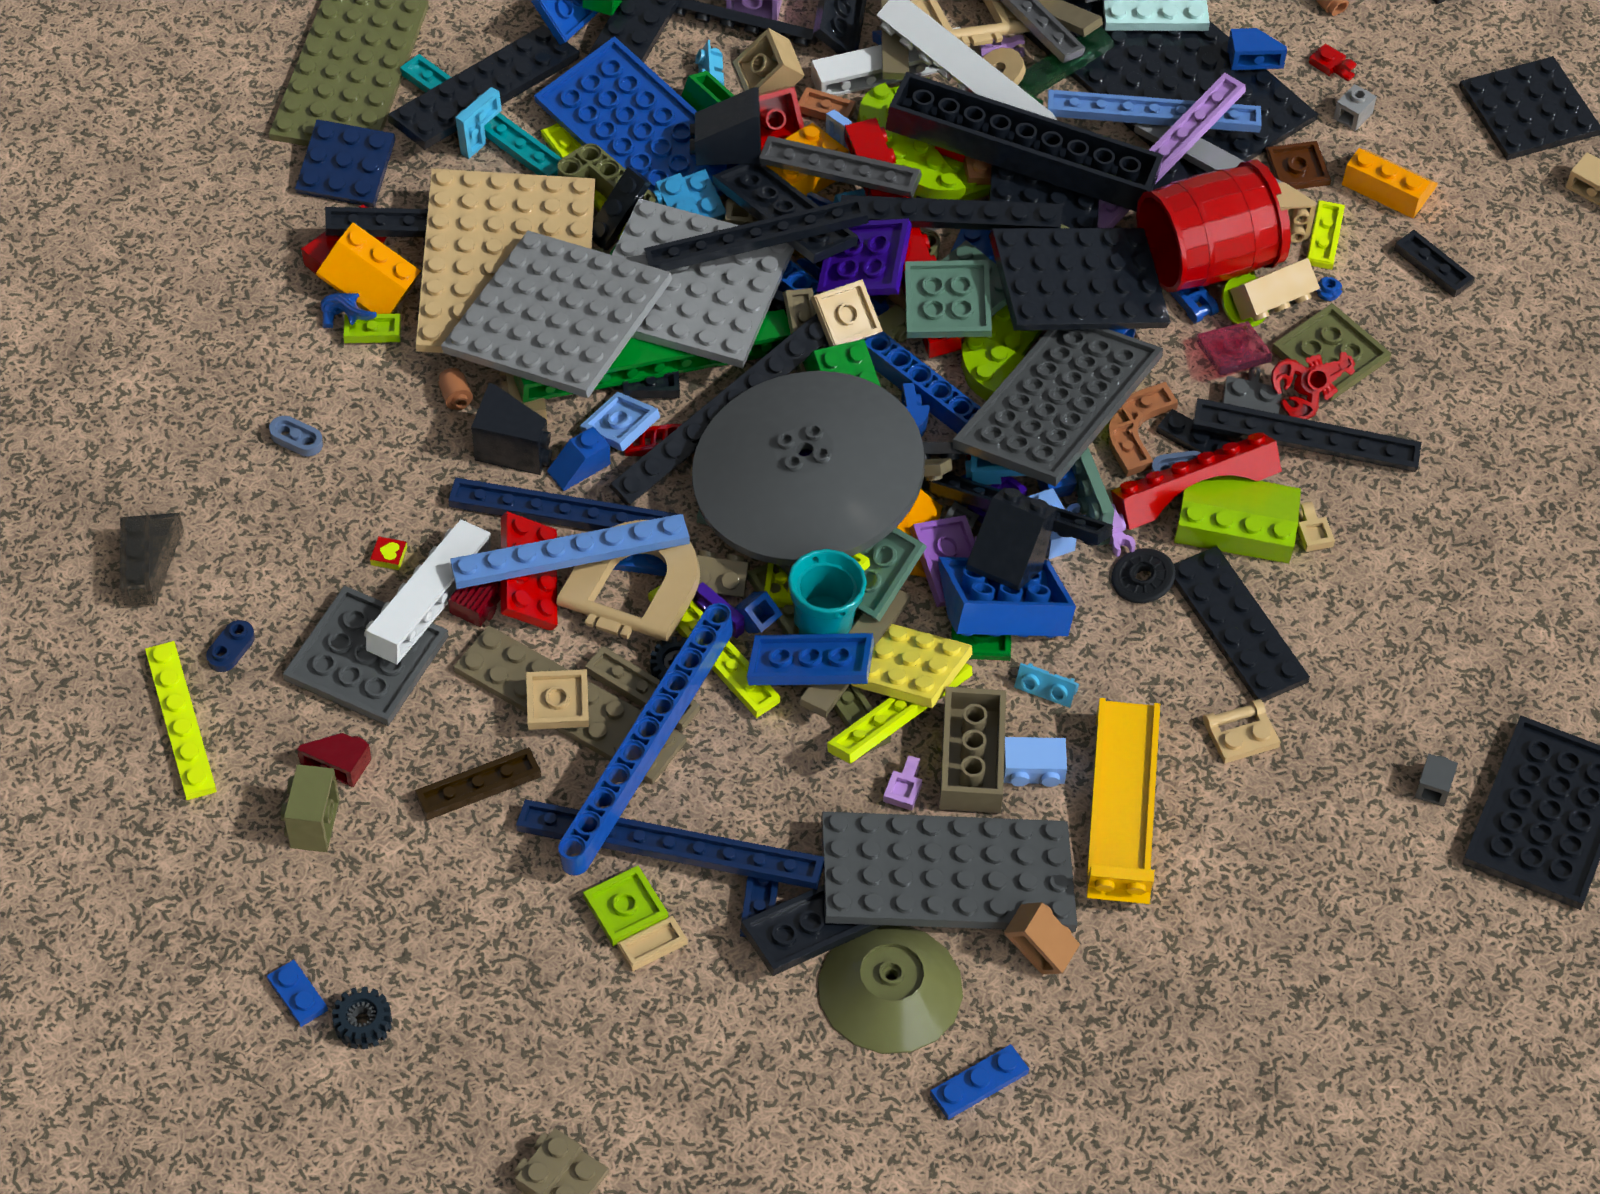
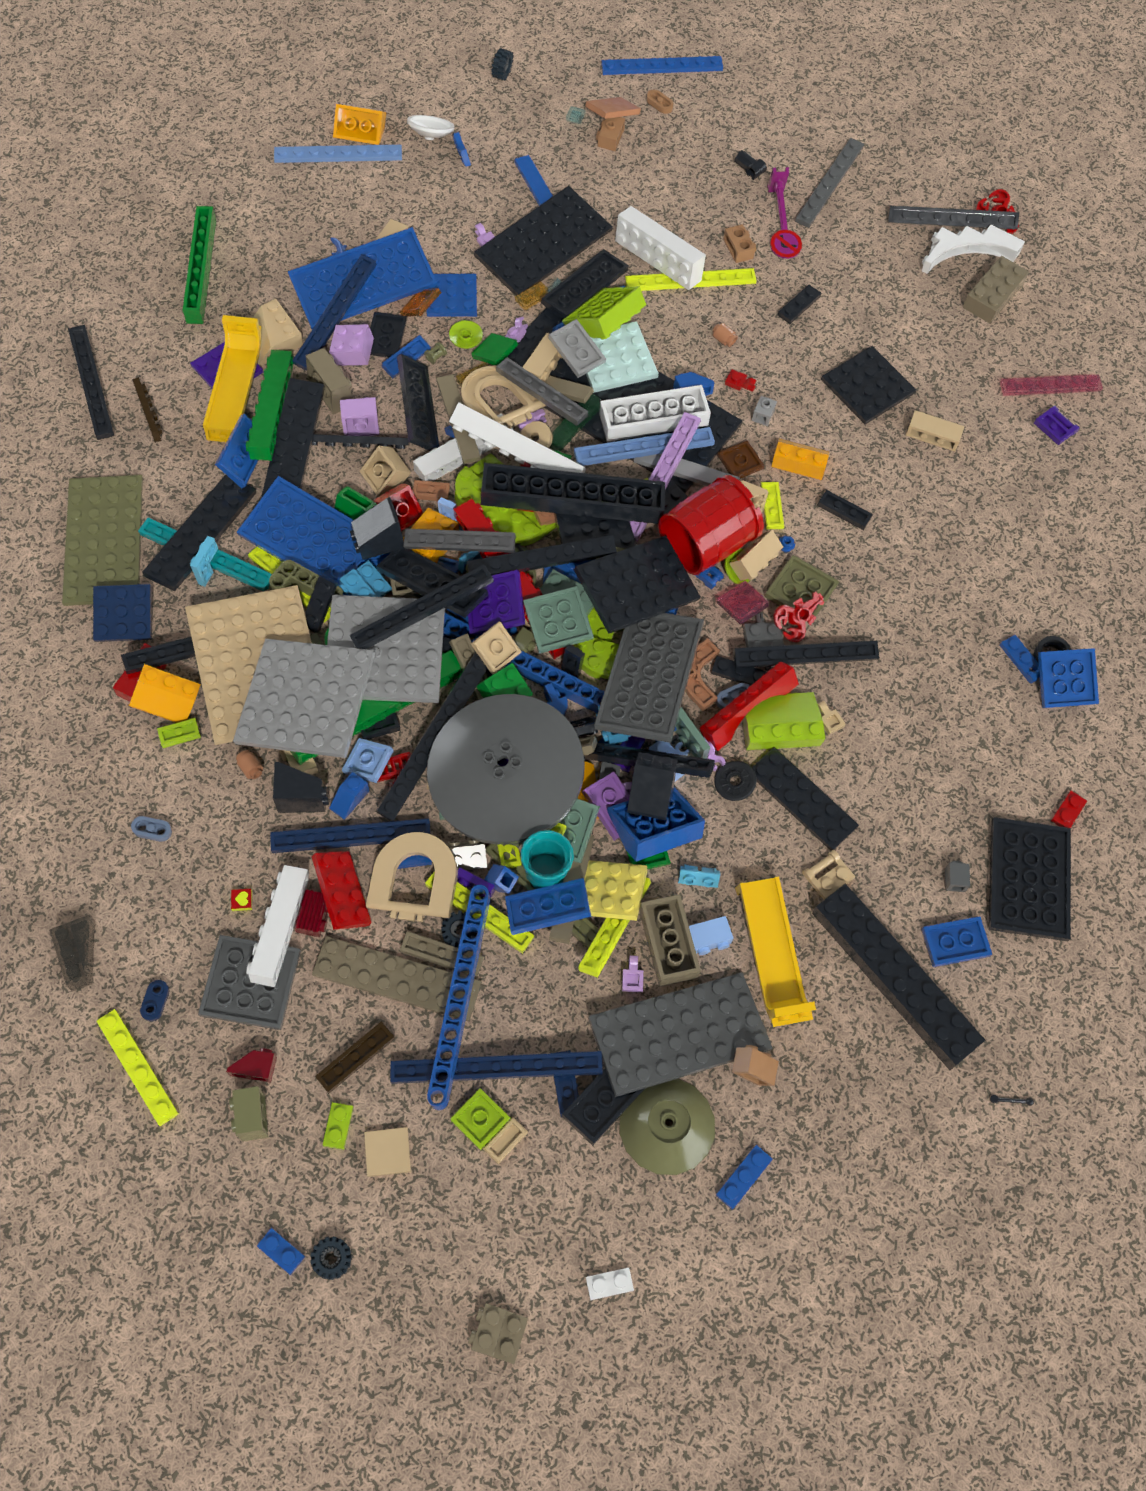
camera: 20 degrees left, 10 degrees up
(343, 302) = (156, 720): blue piece -> none
(426, 862) = (338, 1126): none -> lime plate
(483, 912) = (387, 1152): none -> tan tile
(557, 699) = (390, 982): tan plate -> none
(569, 551) = (366, 873): medium blue plate -> none
(711, 61) = (344, 475): medium azure hinge -> none
(738, 1160) = (609, 1284): none -> white plate
(954, 361) = (573, 661): none -> black plate
(1181, 68) = (652, 412): none -> white brick
(1299, 885) = (898, 977): none -> black brick
(1392, 1086) = (994, 1099): none -> black hinge
(1405, 864) = (956, 941): none -> blue plate

